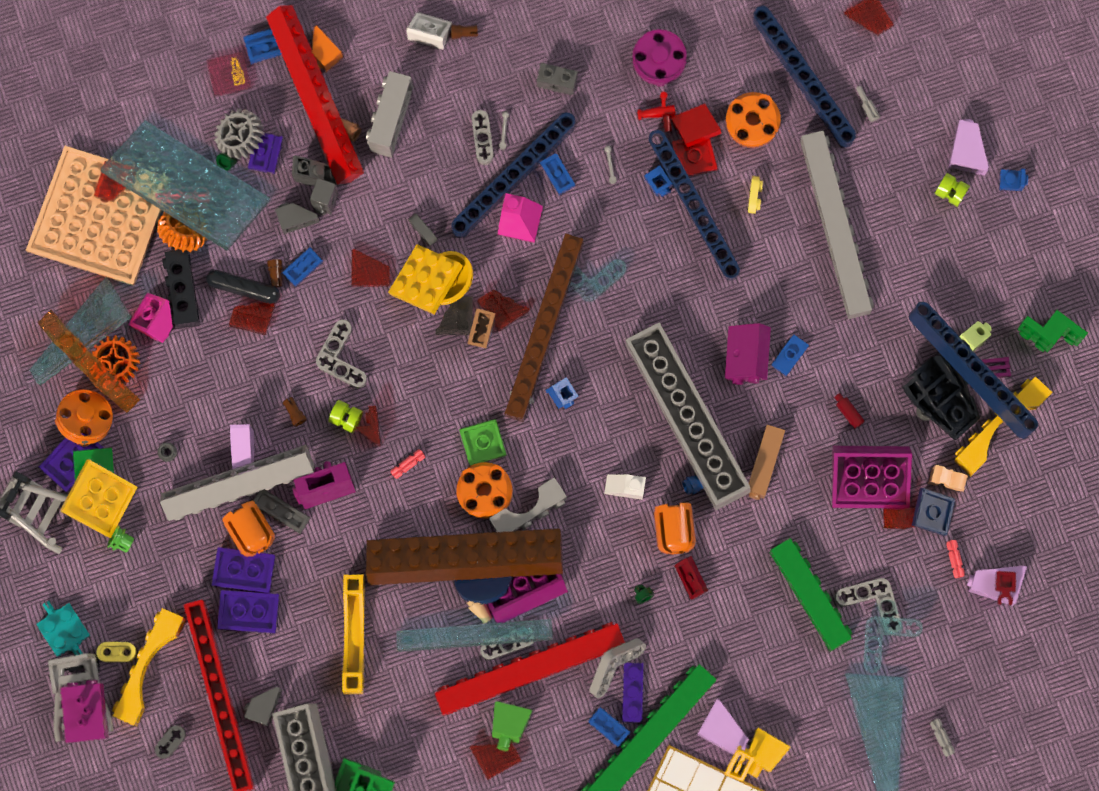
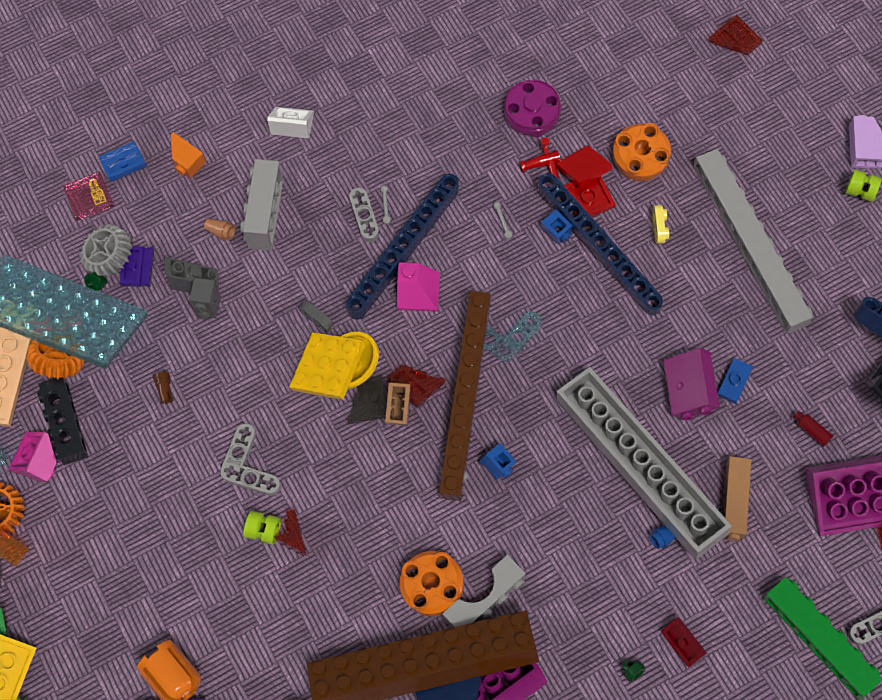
camera: 10 degrees left, 10 degrees down
(165, 446) = (61, 599): dark grey plate -> none
(237, 483) = (148, 623): light grey brick -> none
(242, 445) = (151, 585): lavender slope -> none
(243, 286) = (130, 407): black piece -> none
(252, 317) = (145, 438): clear red wing -> none
(281, 511) = (205, 647): dark grey tile -> none
(294, 217) = (177, 326): dark grey slope -> none
(296, 416) = (207, 536): reddish brown pin -> none
(302, 267) = (192, 376): blue plate -> none
(314, 94) = (181, 200): red brick -> none
(323, 485) = (247, 608): magenta piece -> none
(368, 271) = (265, 369): clear red wing -> none
(407, 464) = (340, 568): coral axle -> none
(463, 31) = (321, 117): reddish brown pin -> none
(483, 442) = (420, 530): bright green tile -> none
(557, 79) = (431, 144): dark grey brick -> none
(557, 174) = (449, 237): blue plate -> none
(625, 486) = (588, 551): white slope -> none
(674, 528) = (654, 588): orange cylinder -> none
(803, 68) = (685, 111): dark blue beam -> none
(868, 106) = (755, 121): light grey axle -> none

